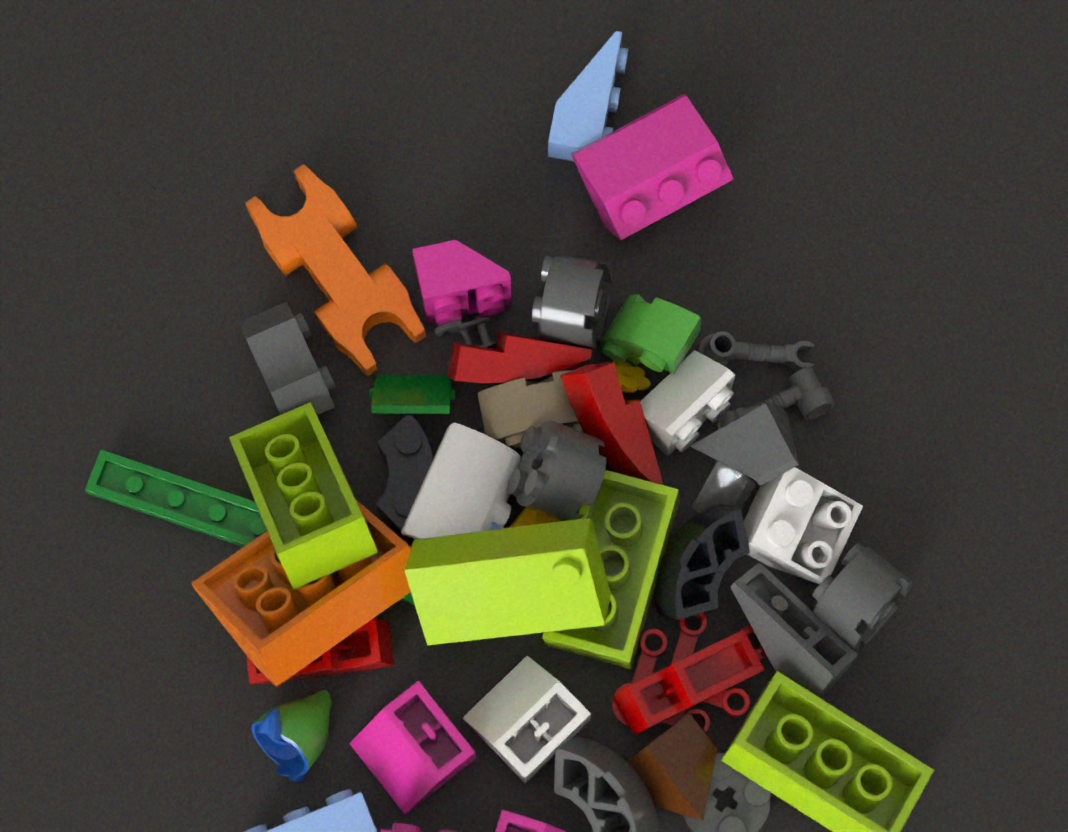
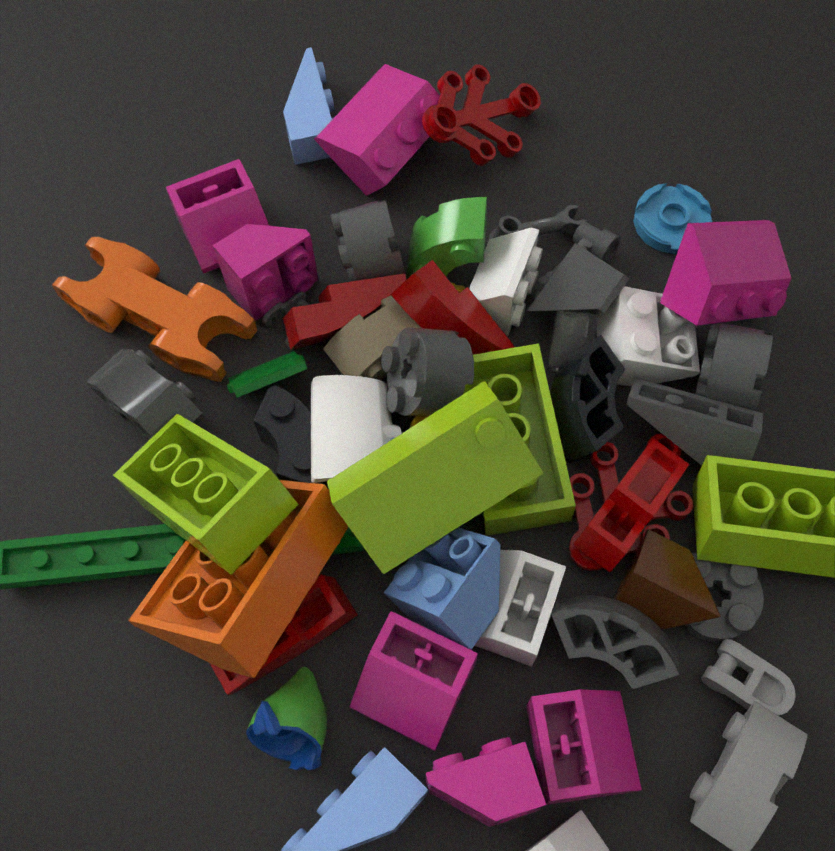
camera: 25 degrees left, 10 degrees down
(440, 197) = (215, 207): none -> dark pink slope
(482, 683) = (451, 586): none -> medium blue slope
(754, 195) = (445, 123): none -> red plant
(901, 503) = (728, 272): none -> dark pink slope
(908, 400) = (664, 215): none -> dark azure tile

